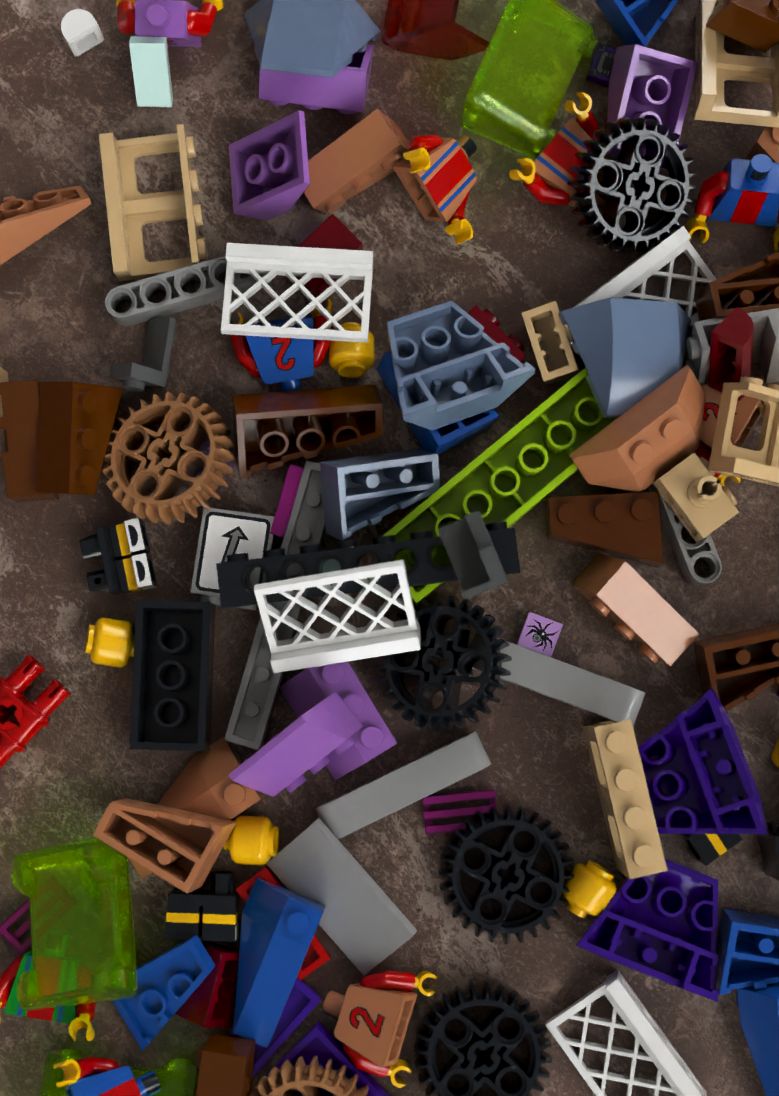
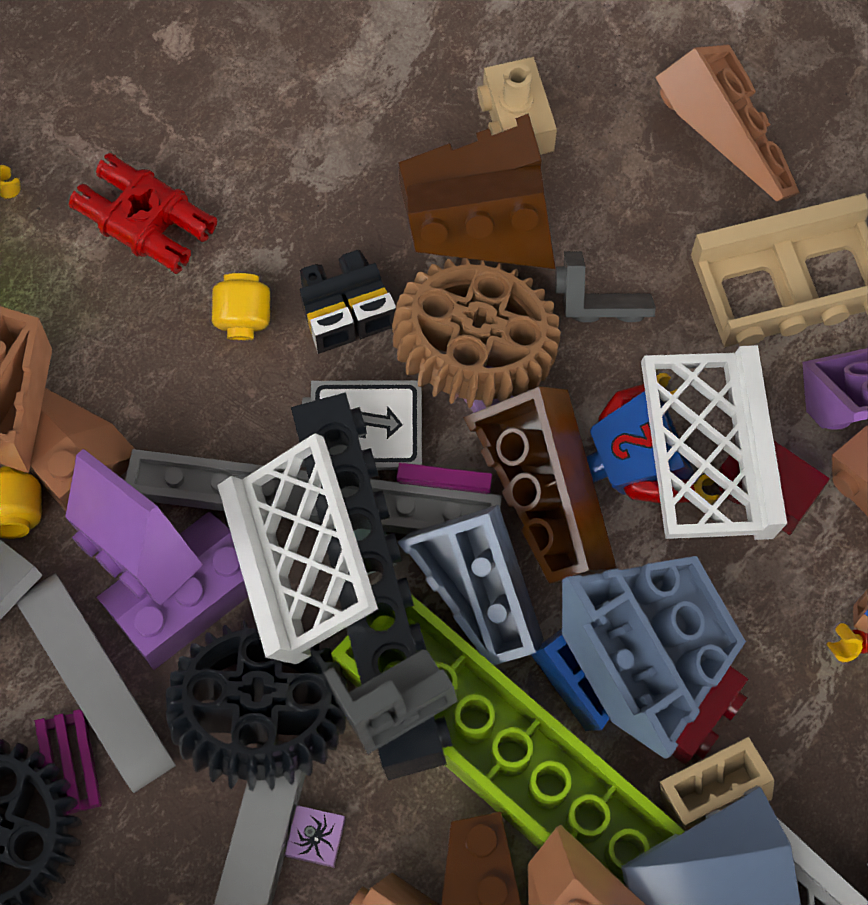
camera: 80 degrees right, 15 degrees down
(172, 675) = (203, 377): black brick -> none
(176, 299) = (687, 313): light grey beam -> none
(352, 358) = (645, 535): yellow head -> none

